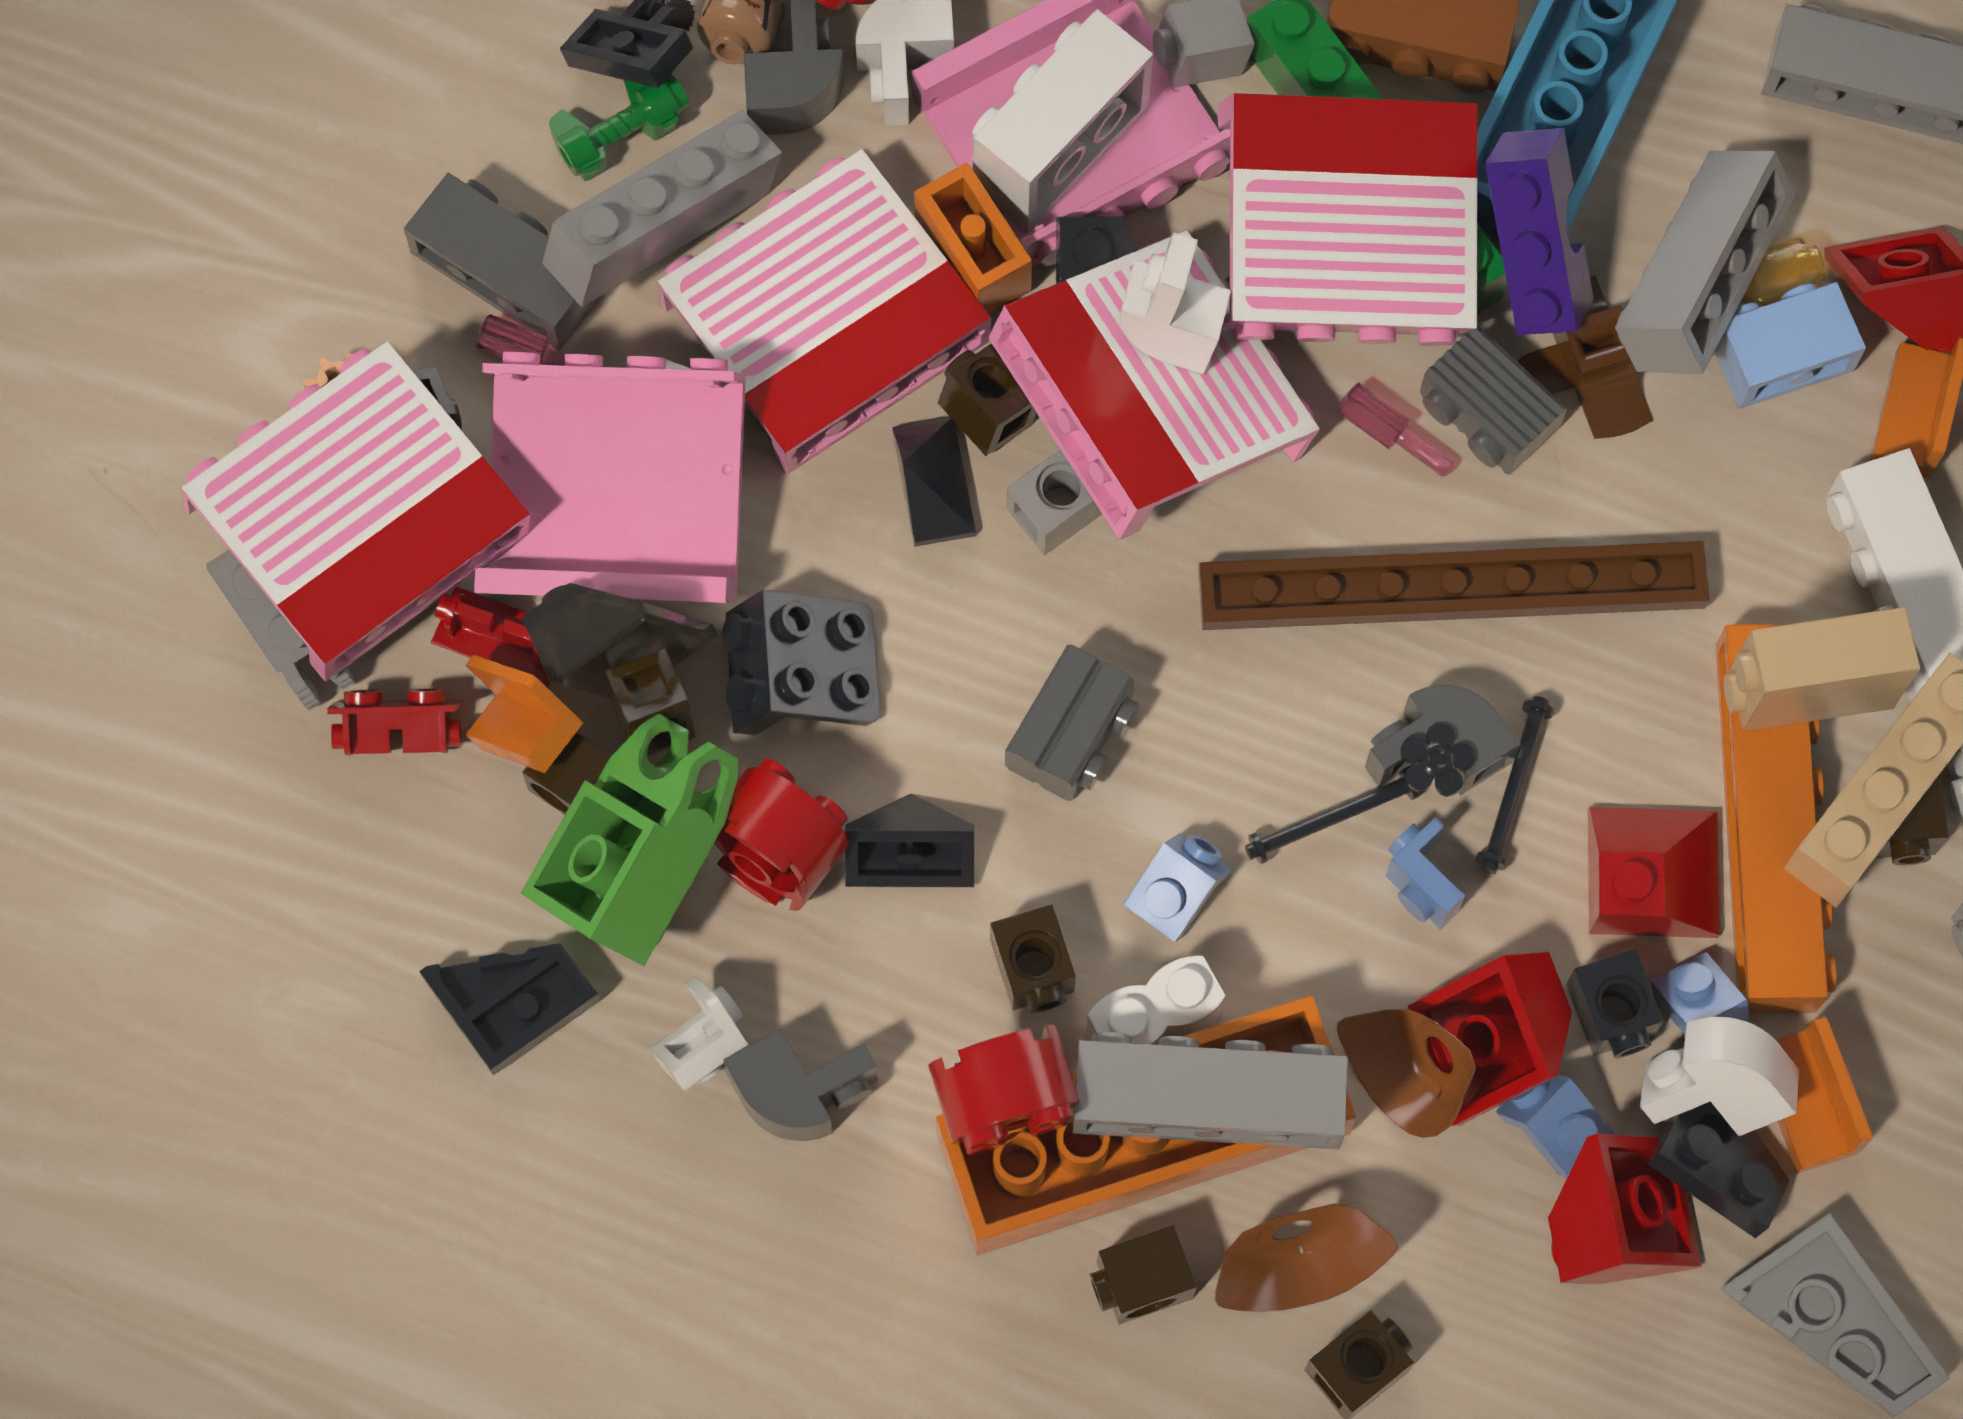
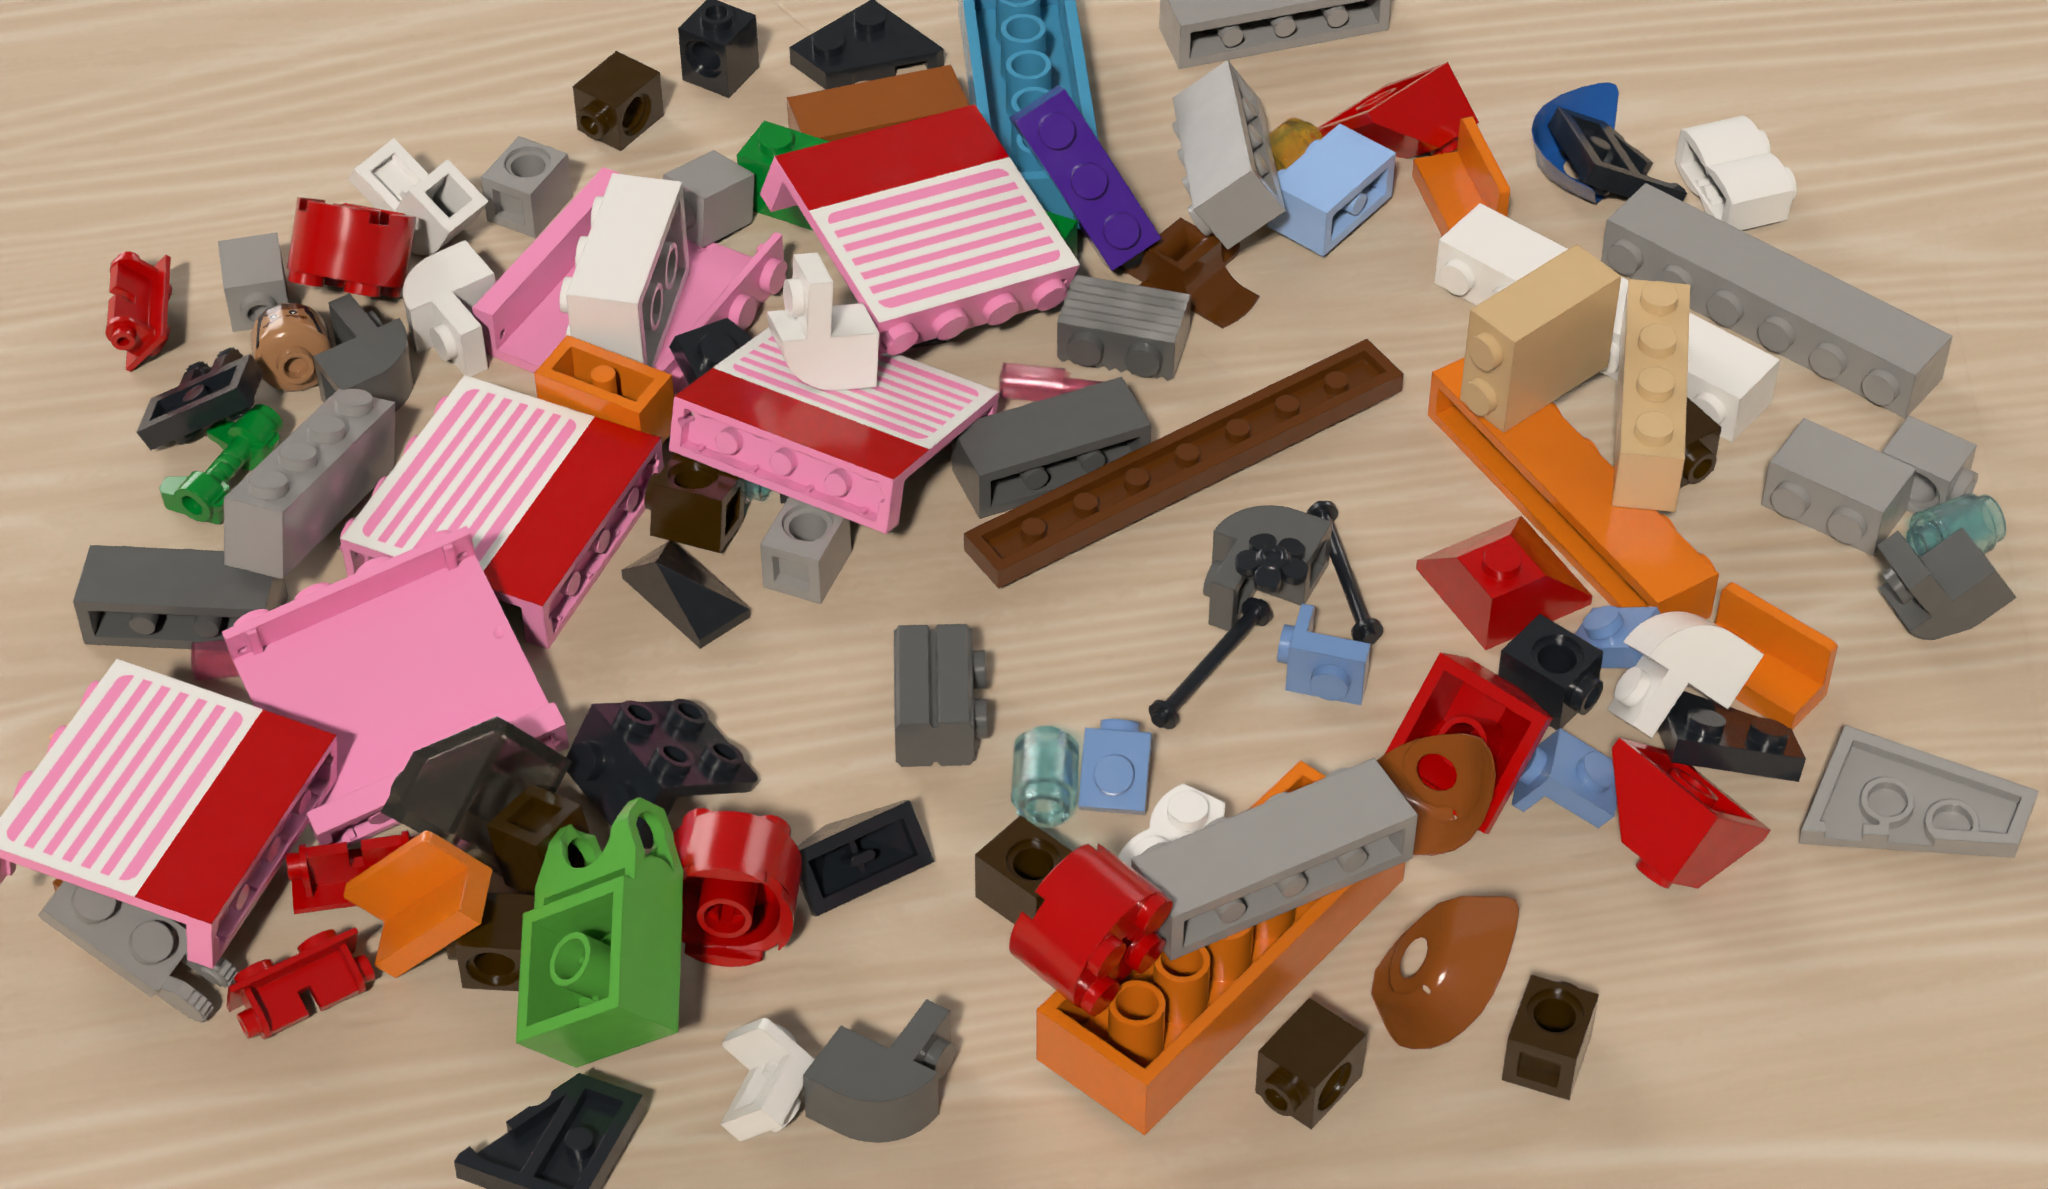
camera: 30 degrees left, 25 degrees down
(1111, 860) = (1045, 775): none -> clear light blue brick
(1339, 503) = (1046, 444): none -> dark grey brick

